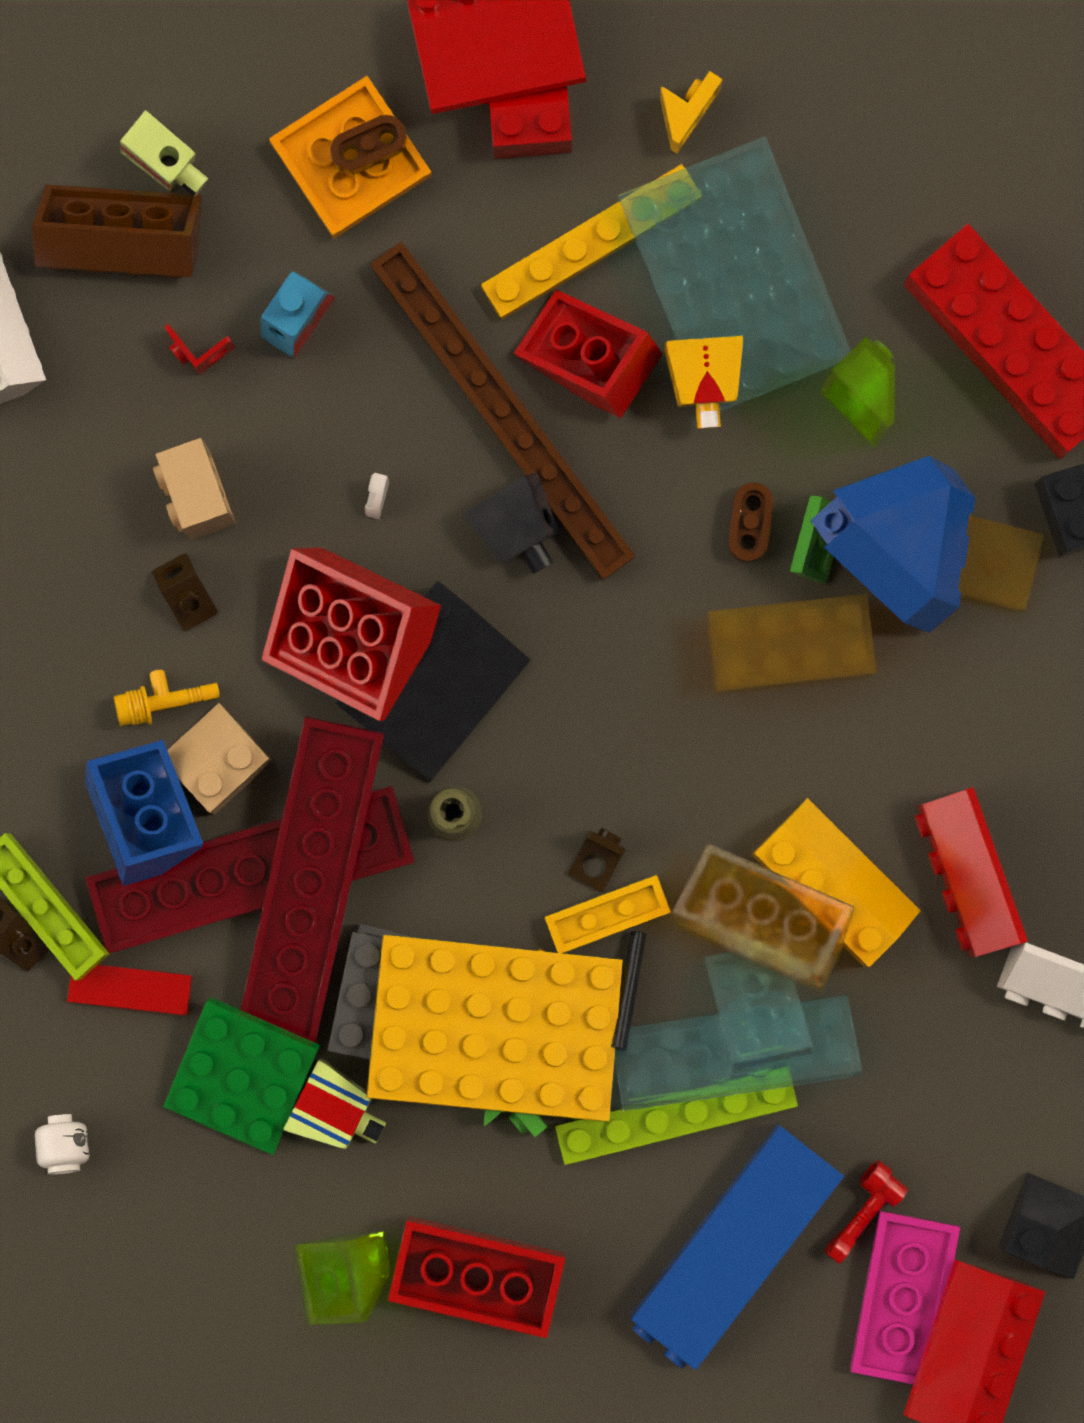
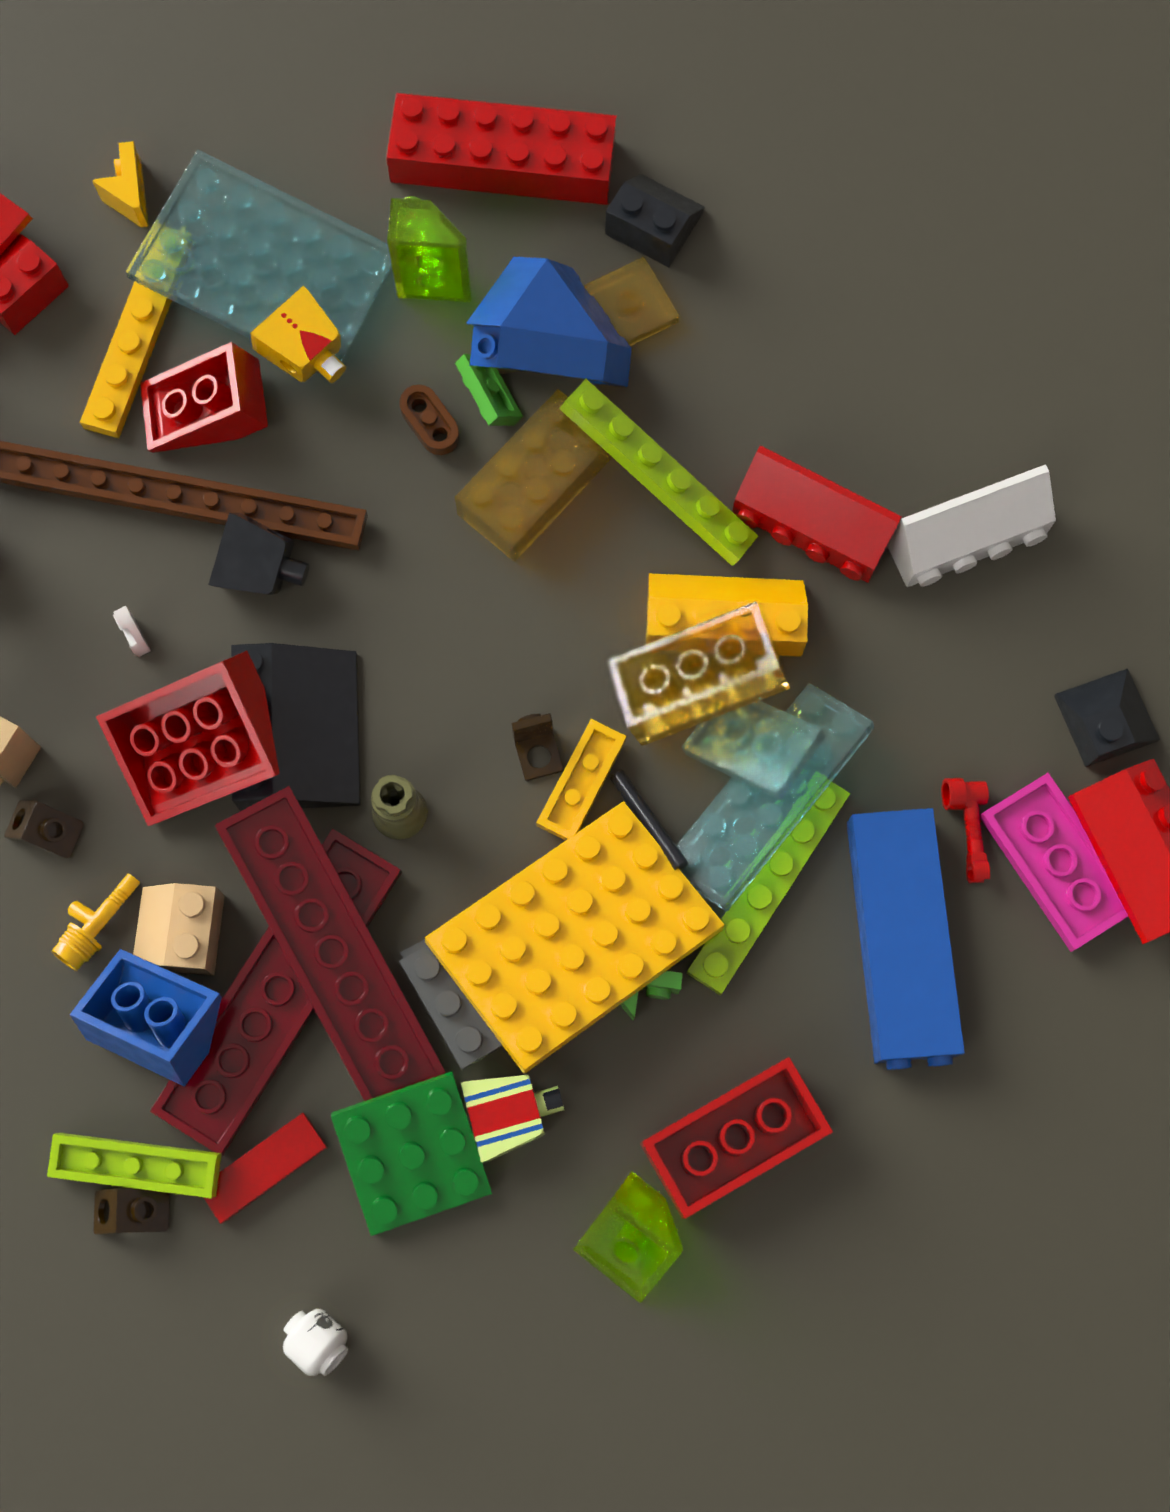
camera: 45 degrees left, 10 degrees down
(883, 730) = (658, 472): none -> lime plate

